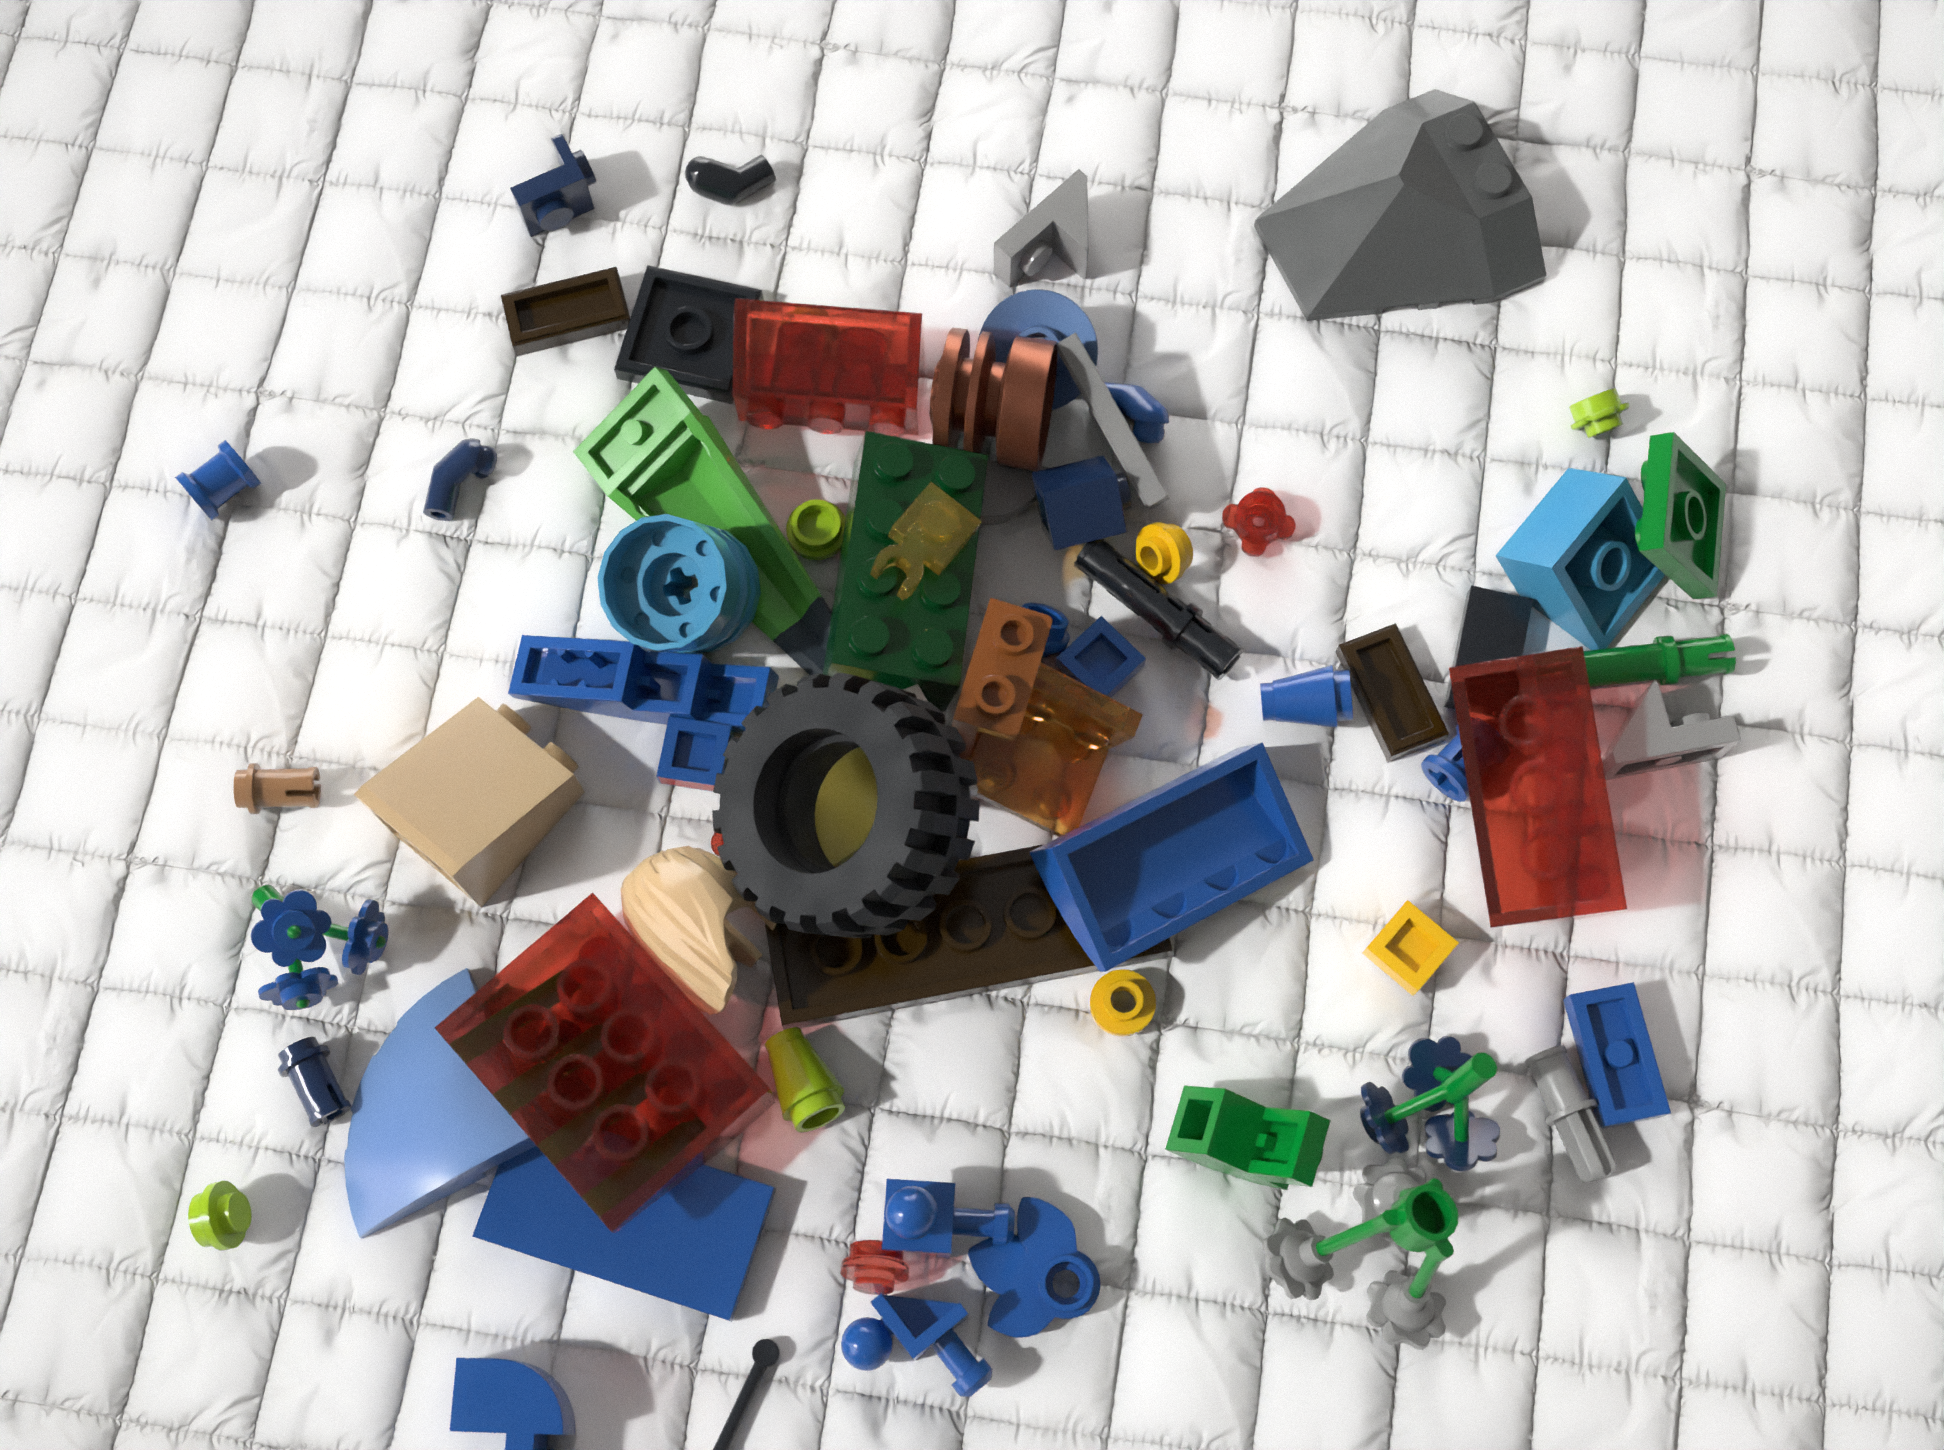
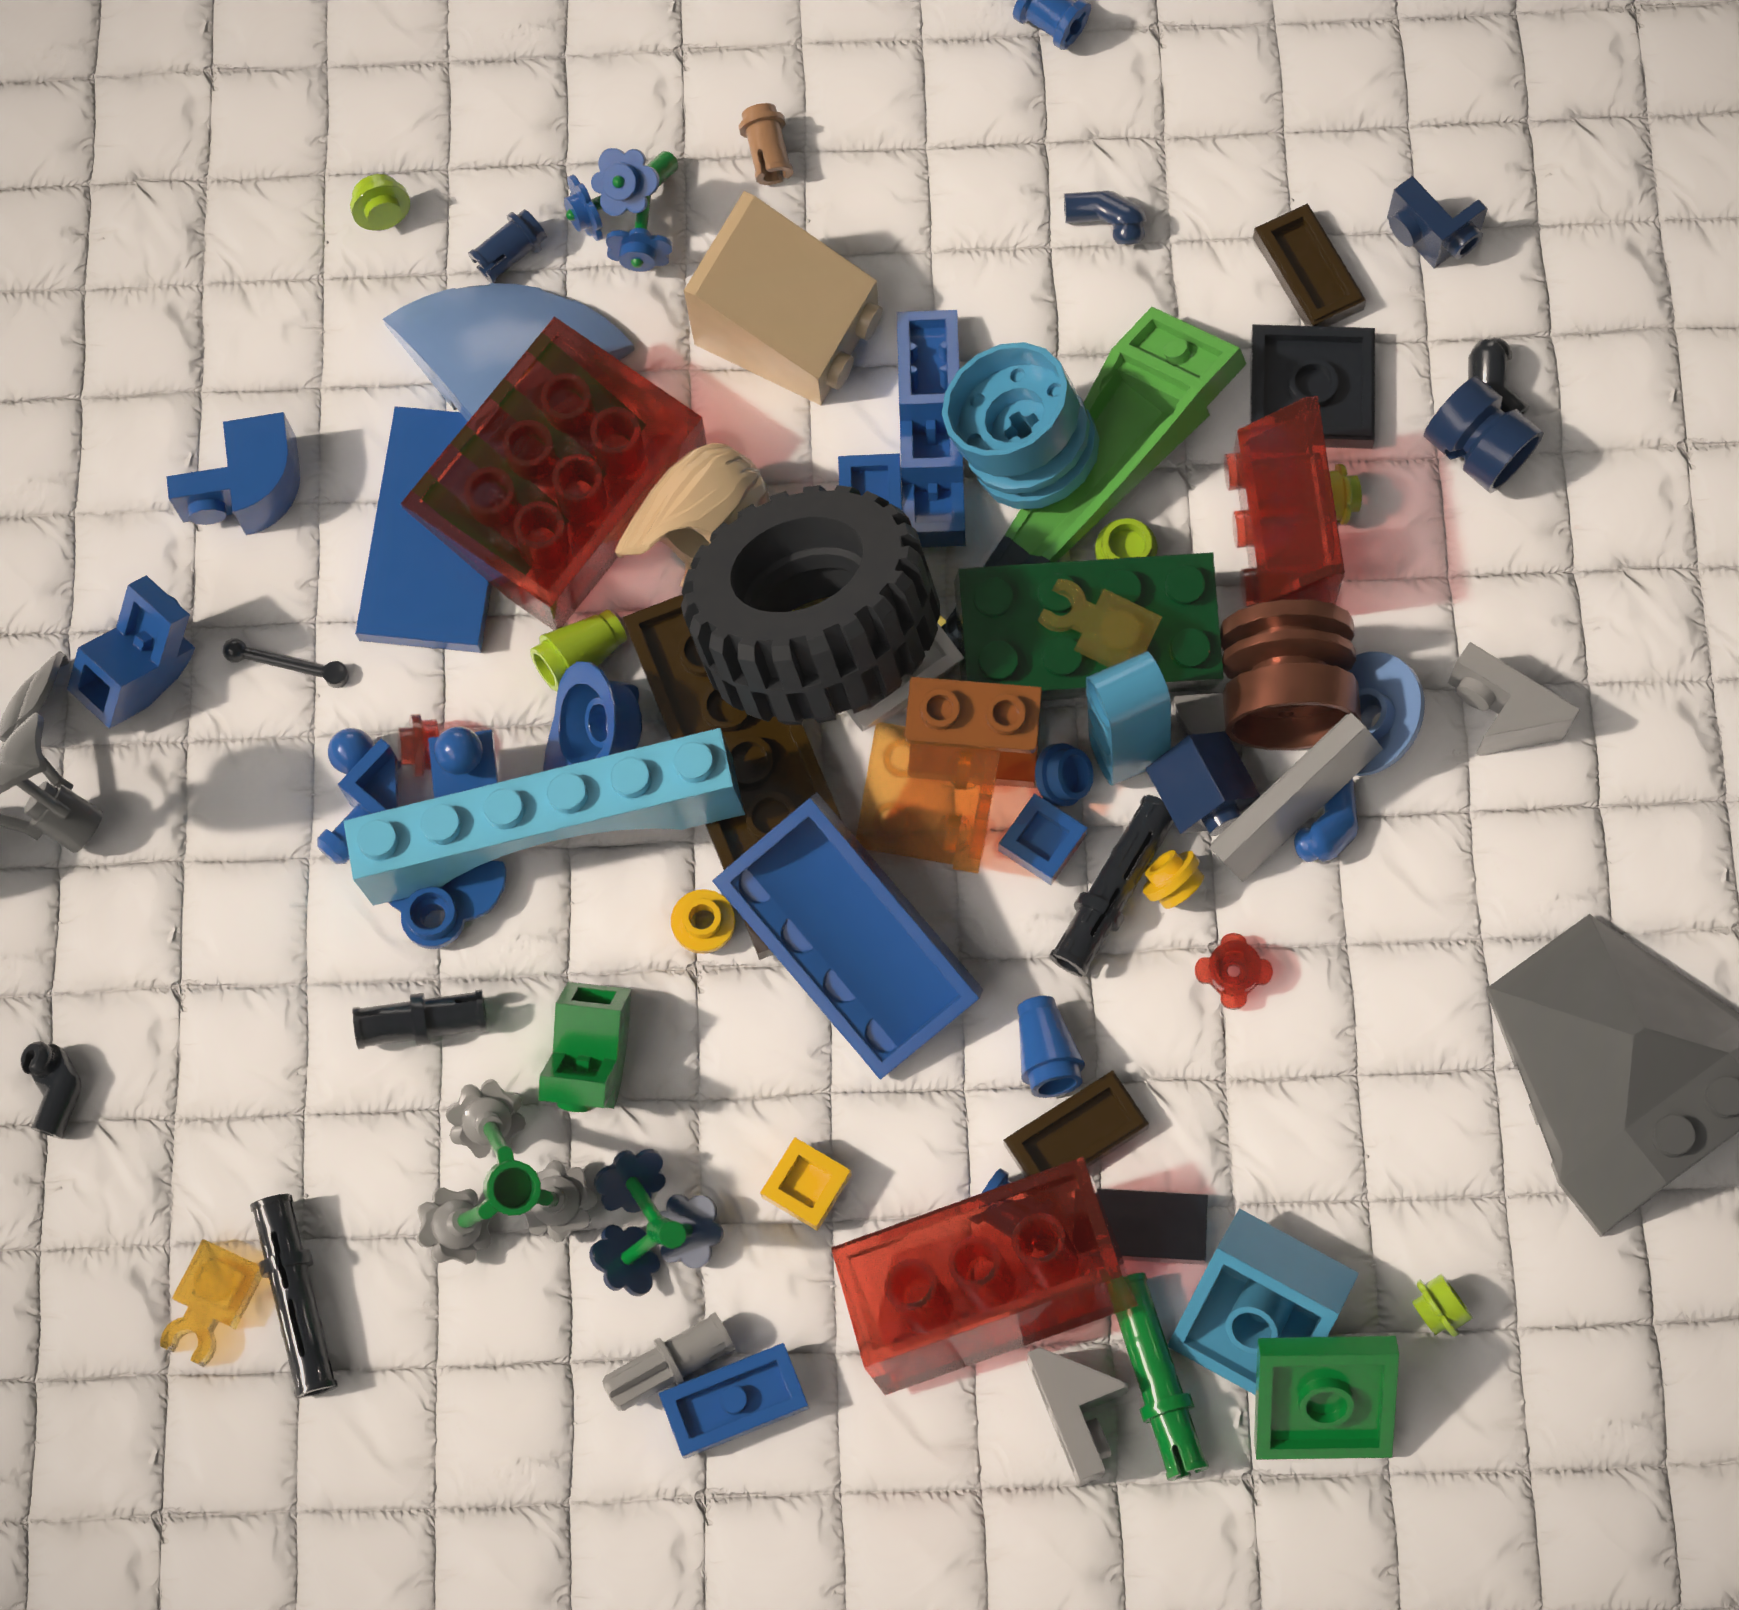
camera: 85 degrees right, 0 degrees up
(788, 191) = (1478, 430): none -> dark blue wheel
(908, 1084) = (592, 717): none -> blue piece
(996, 1139) = (643, 788): none -> medium azure arch
(1016, 540) = (1128, 717): none -> dark azure beam
(1178, 1314) = (419, 1019): none -> black pin

